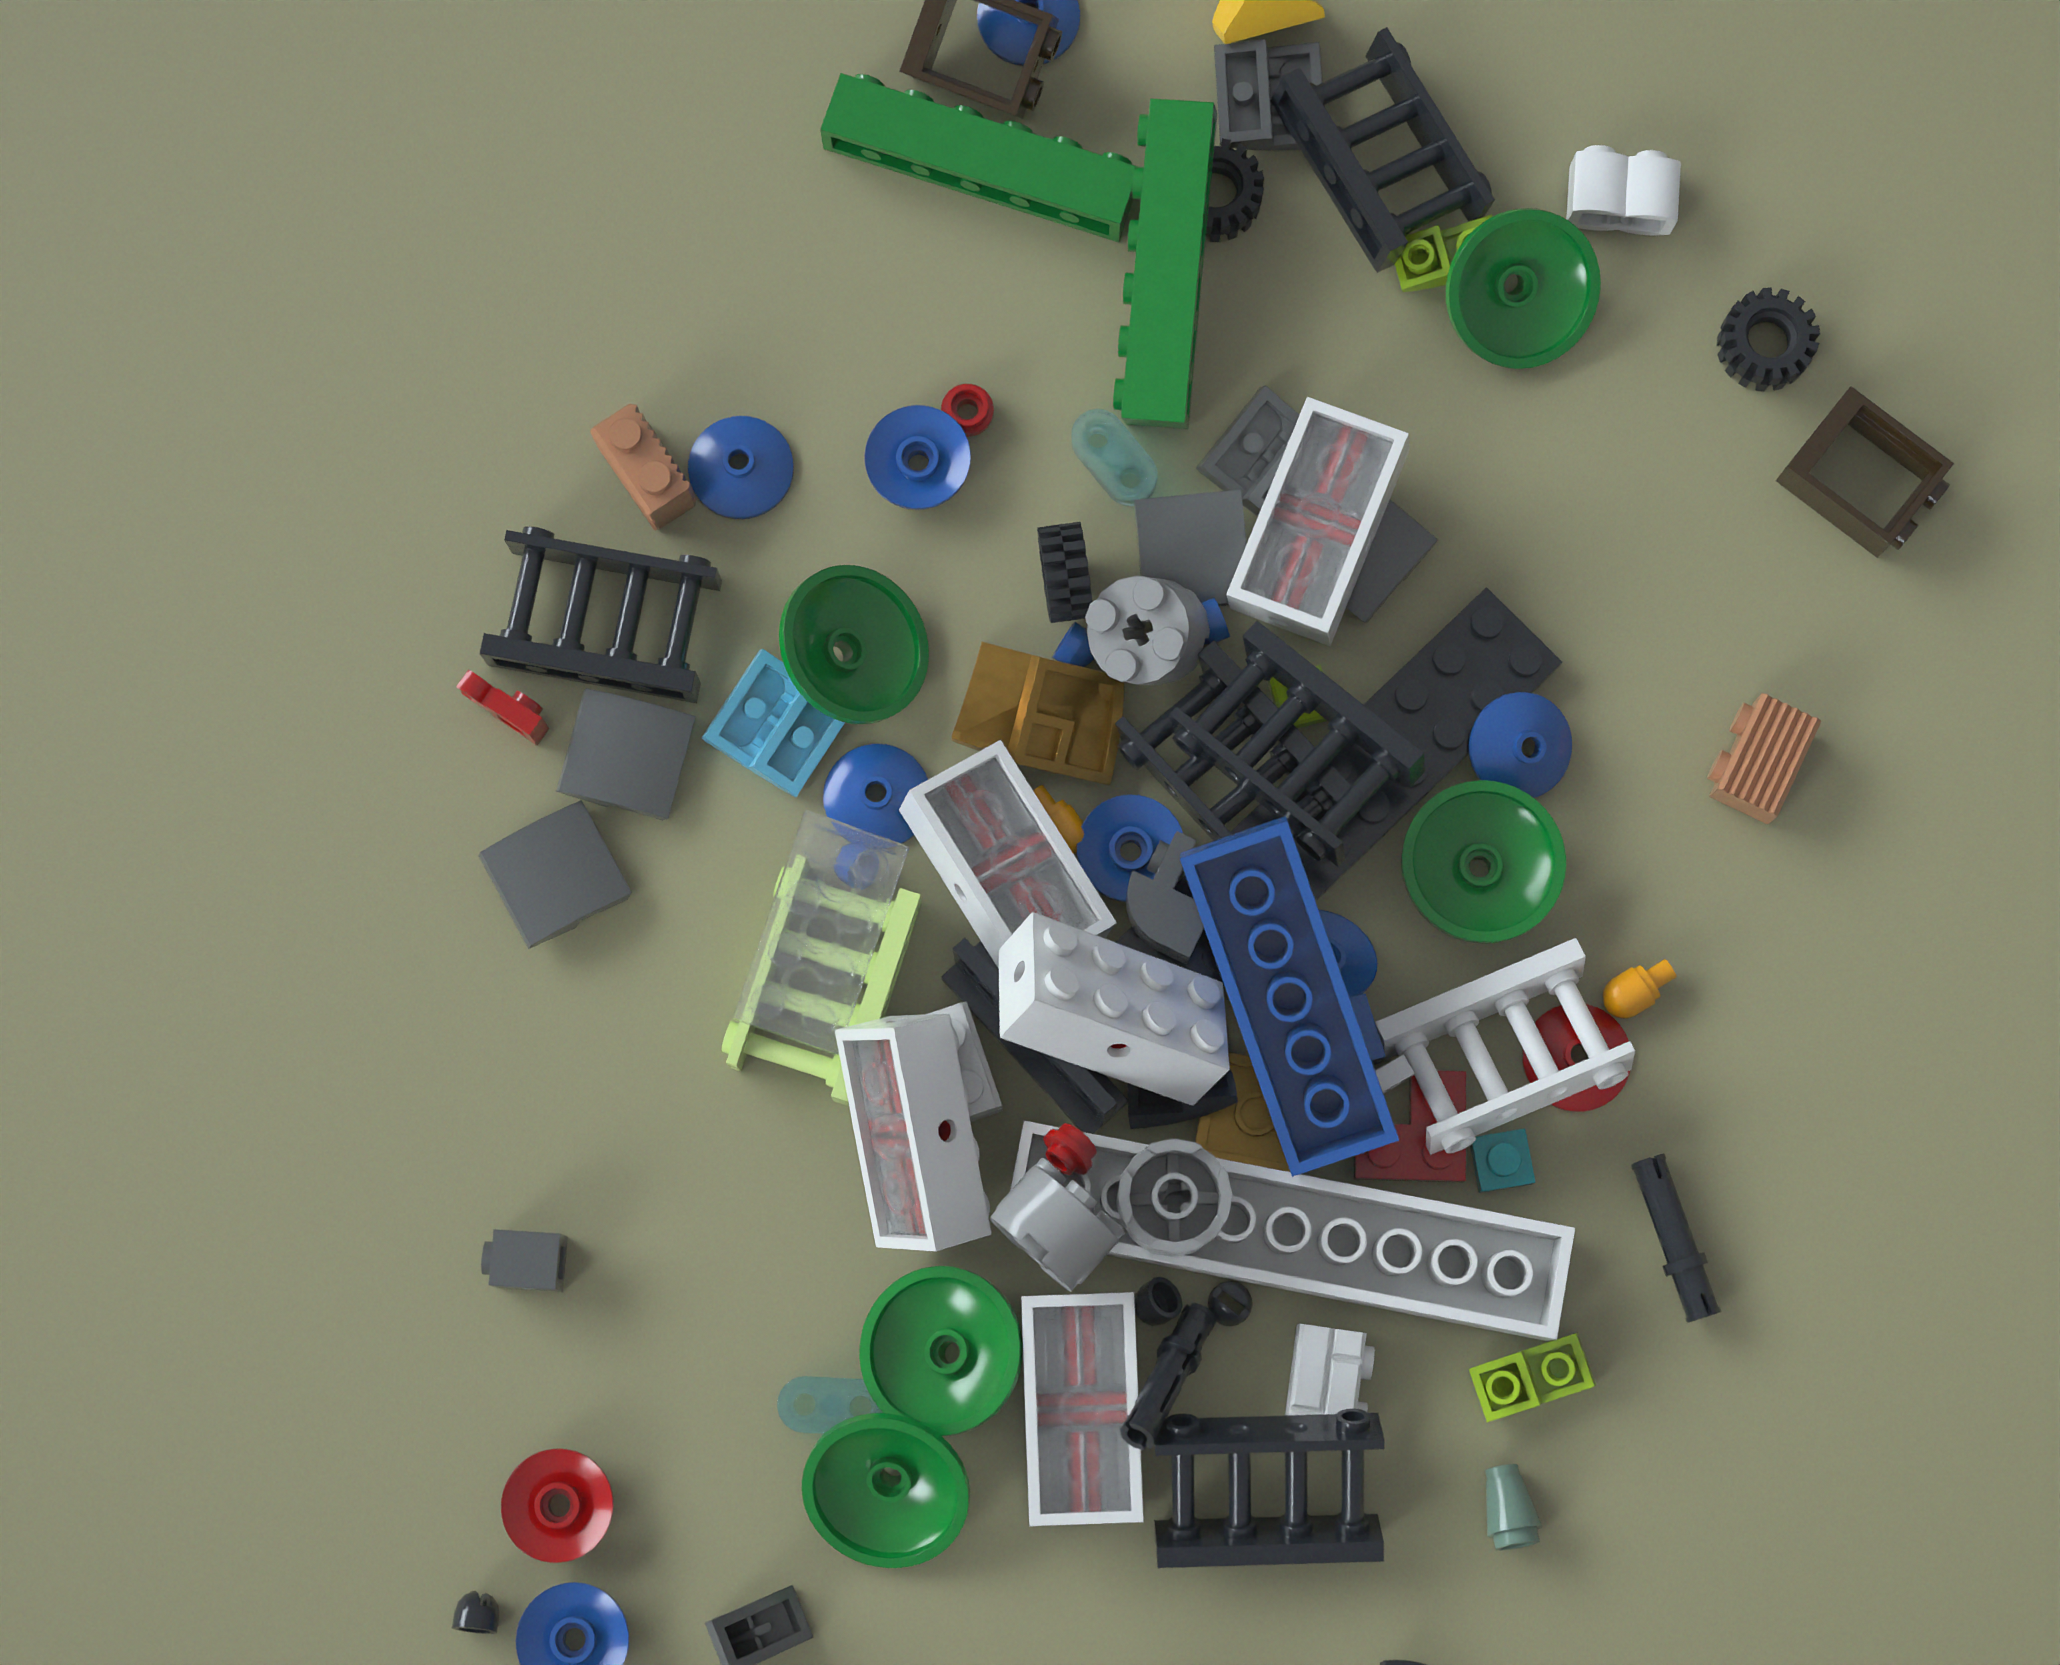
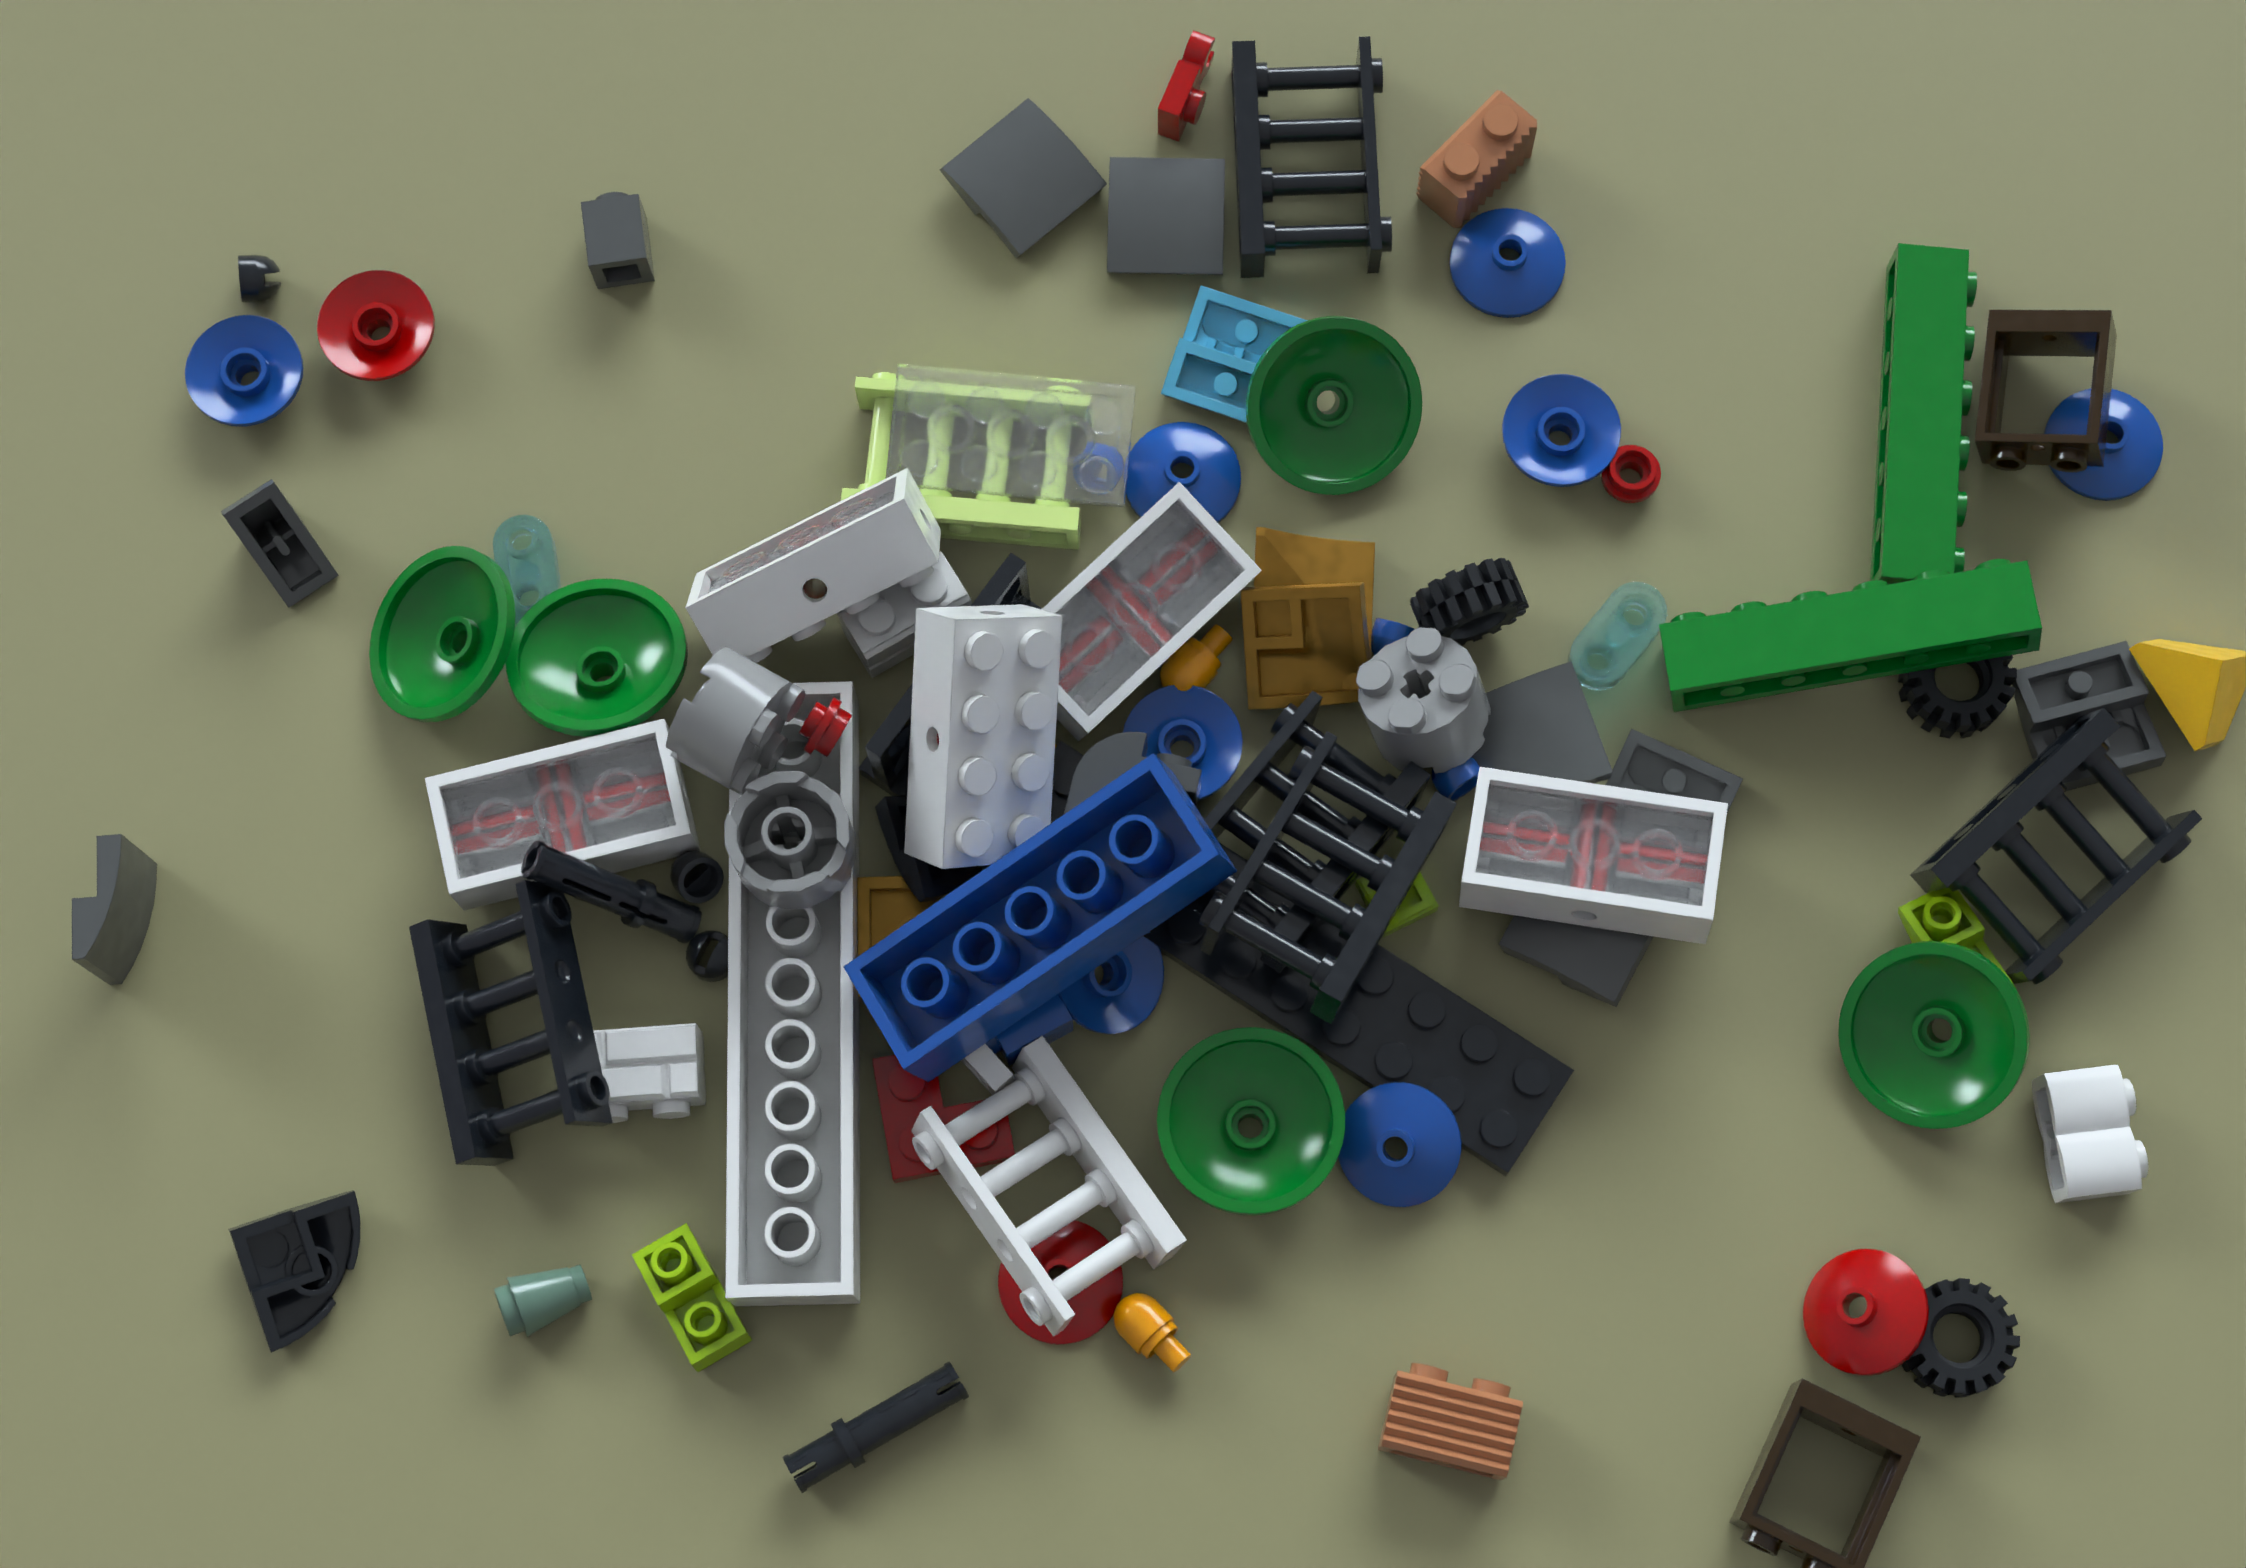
camera: 80 degrees right, 5 degrees down
(1502, 1161) = (925, 1218): teal plate -> none
(1728, 378) = (1888, 1328): none -> red dish

